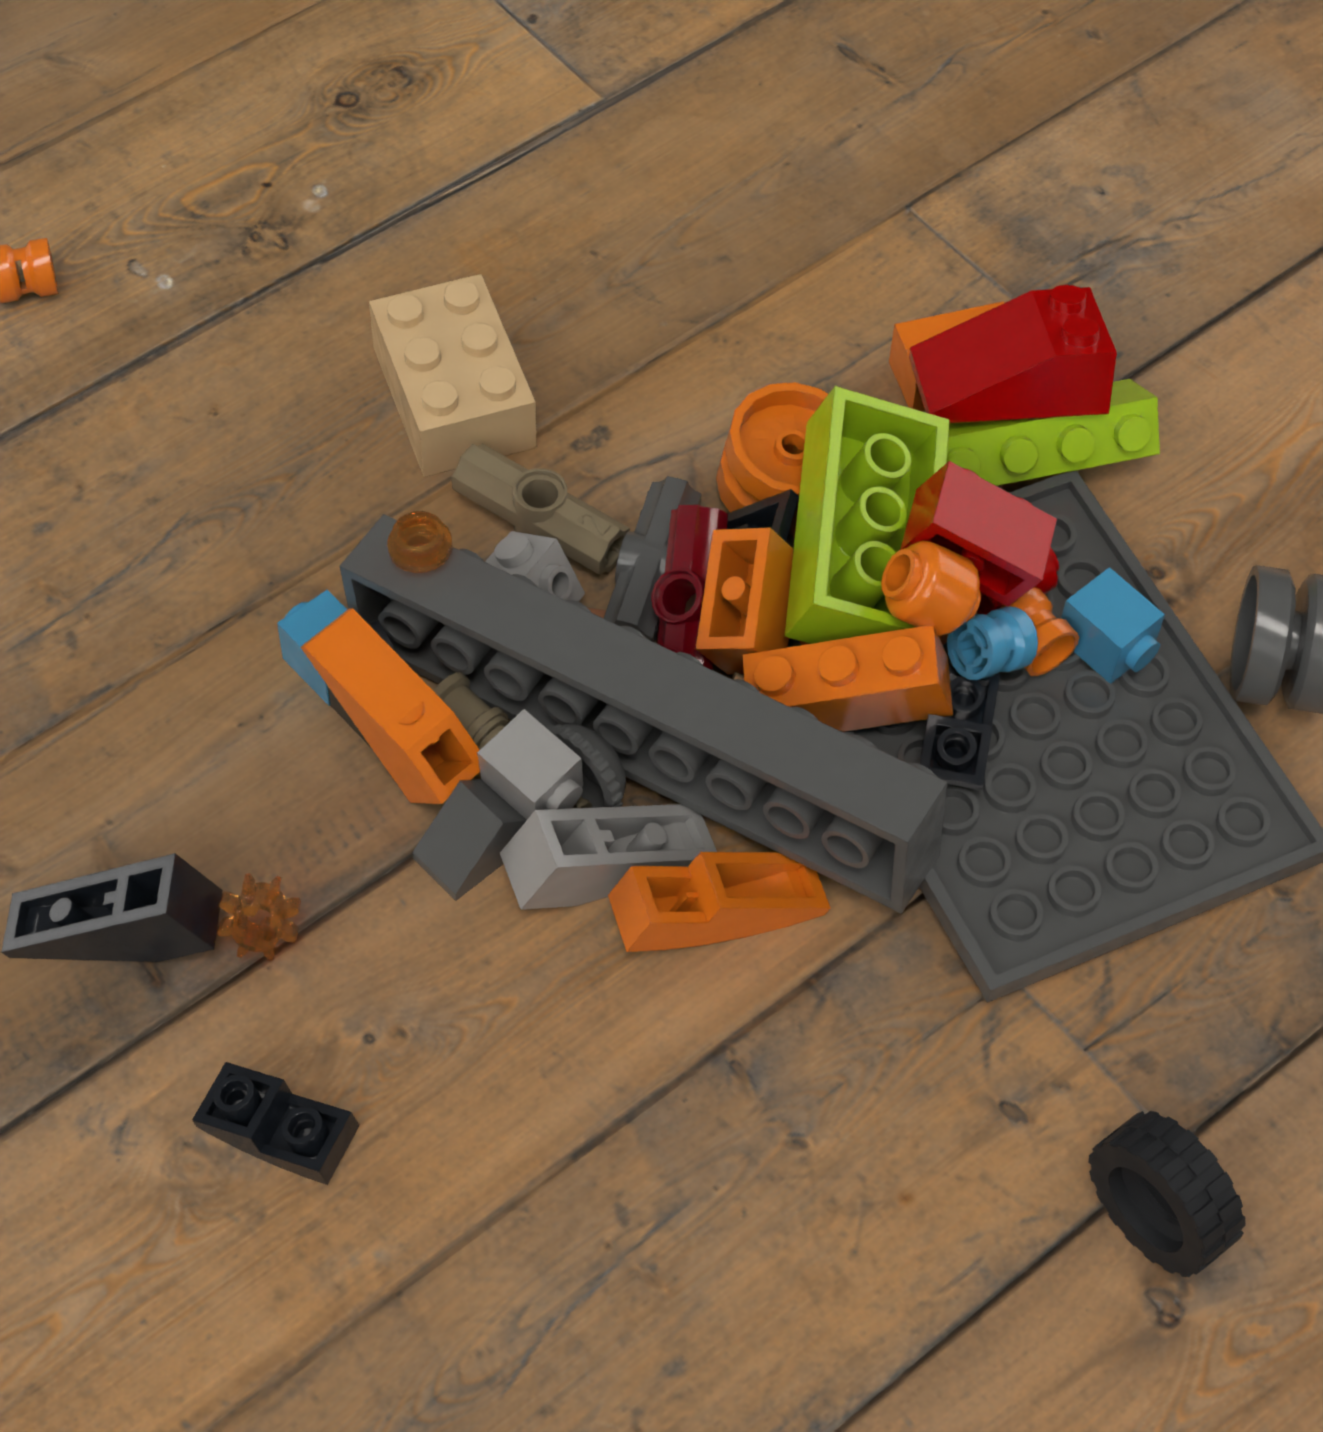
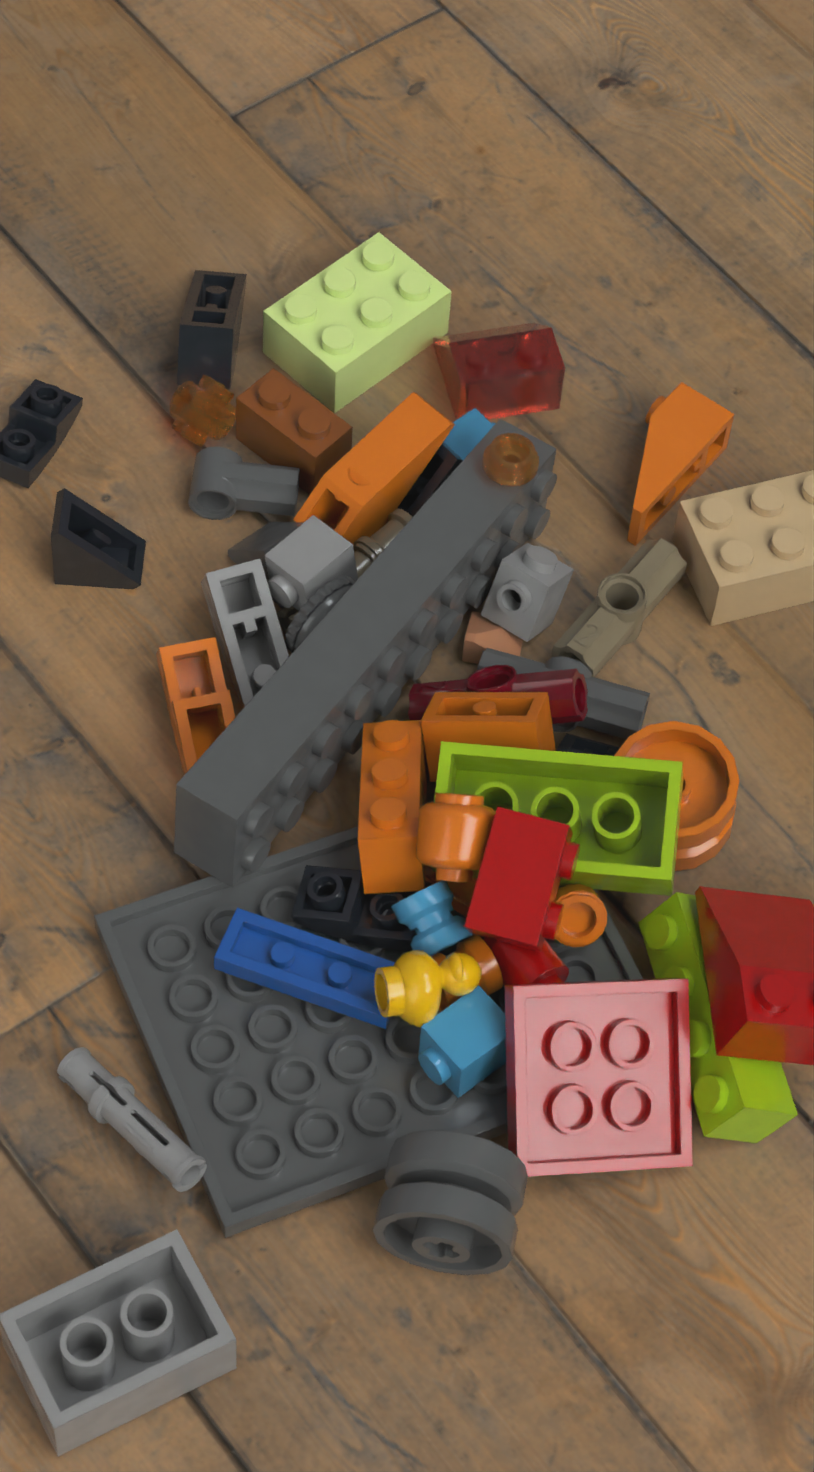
camera: 90 degrees right, 0 degrees up
(120, 756) = (356, 322): none -> yellowish green brick
(183, 617) = (502, 370): none -> clear red slope
(295, 816) = (291, 428): none -> dark orange brick
(330, 460) = (680, 445): none -> orange slope
(370, 887) = (227, 484): none -> dark grey piece
(470, 1036) = (93, 547): none -> black slope
(1042, 768) = (301, 965): none -> blue plate
(1083, 645) = (416, 982): none -> yellow animal
(1134, 516) = (599, 1075): none -> plate
(1210, 959) = (113, 1102): none -> light grey pin

